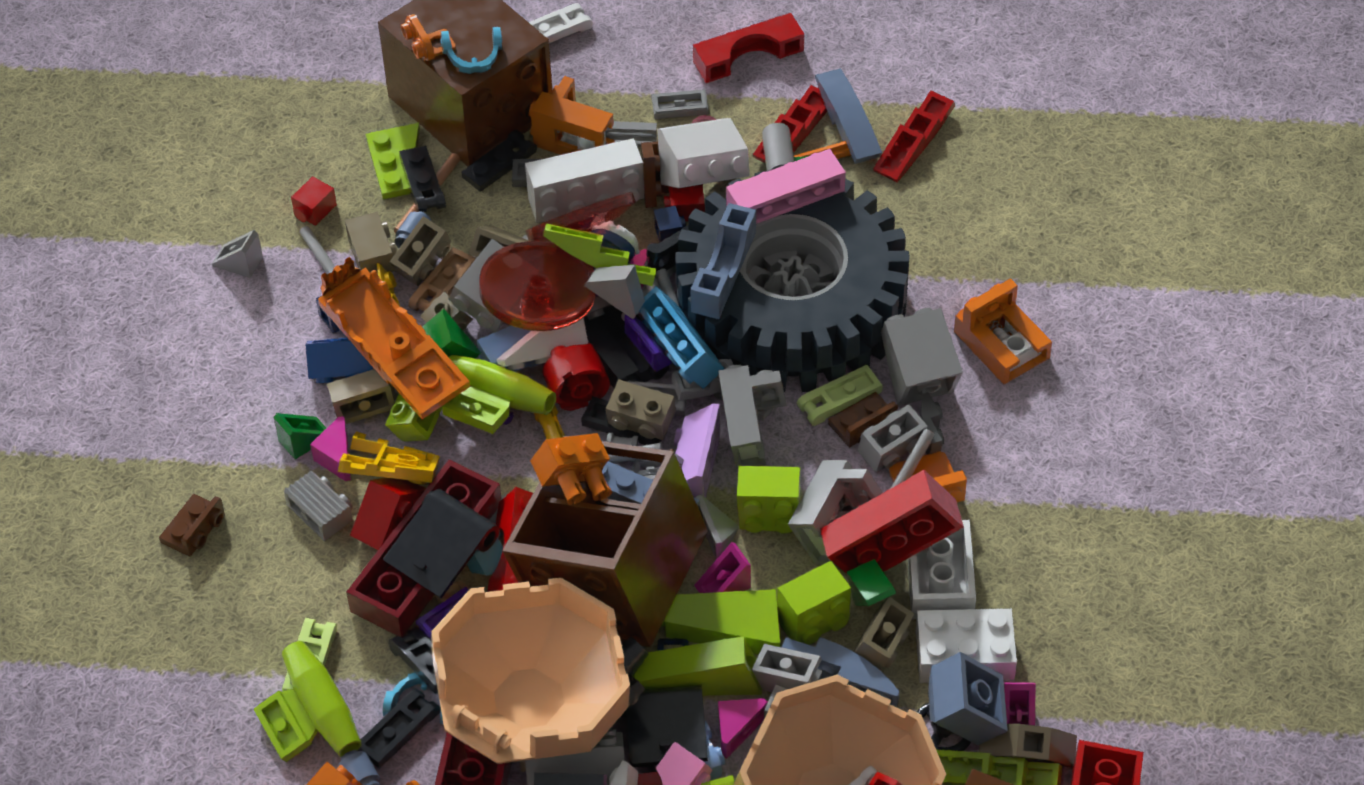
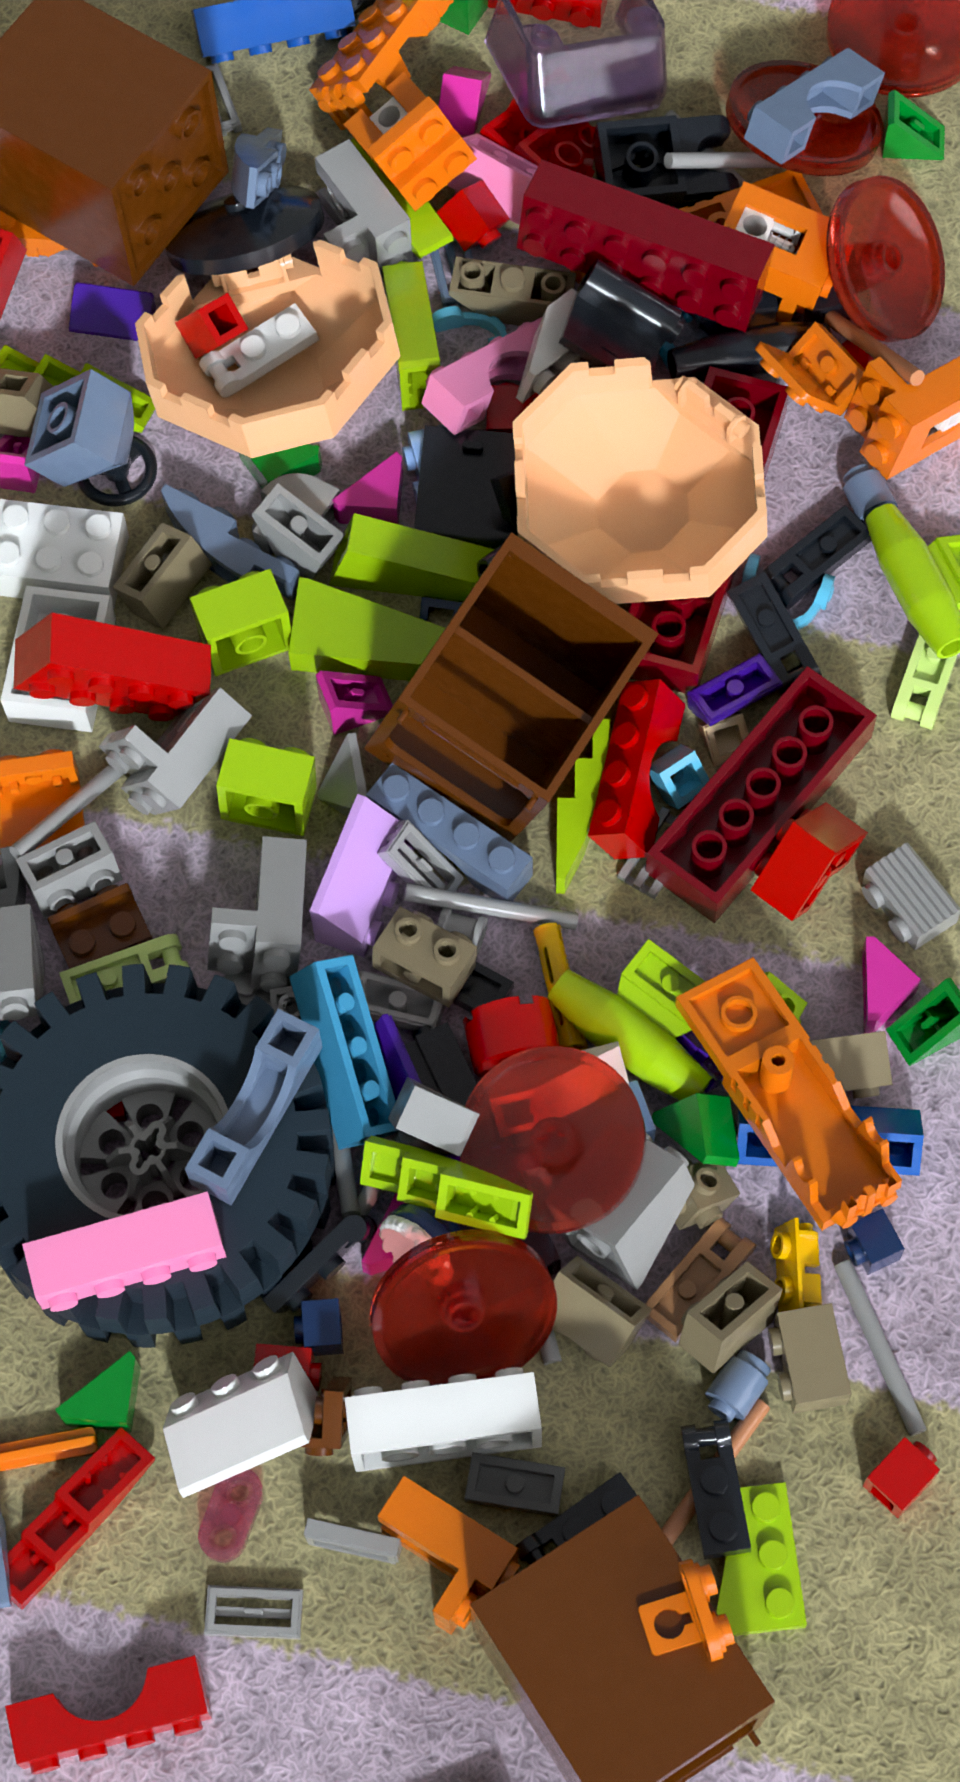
camera: 170 degrees left, 15 degrees up
(390, 462) = (783, 920): yellow wing -> none
(442, 539) = (737, 754): black door -> none
(474, 66) = (608, 1545): medium azure piece -> none
(571, 461) = (546, 727): orange brick -> none
(777, 145) = (113, 1416): light grey brick -> none
(869, 584) = (158, 611): green slope -> none

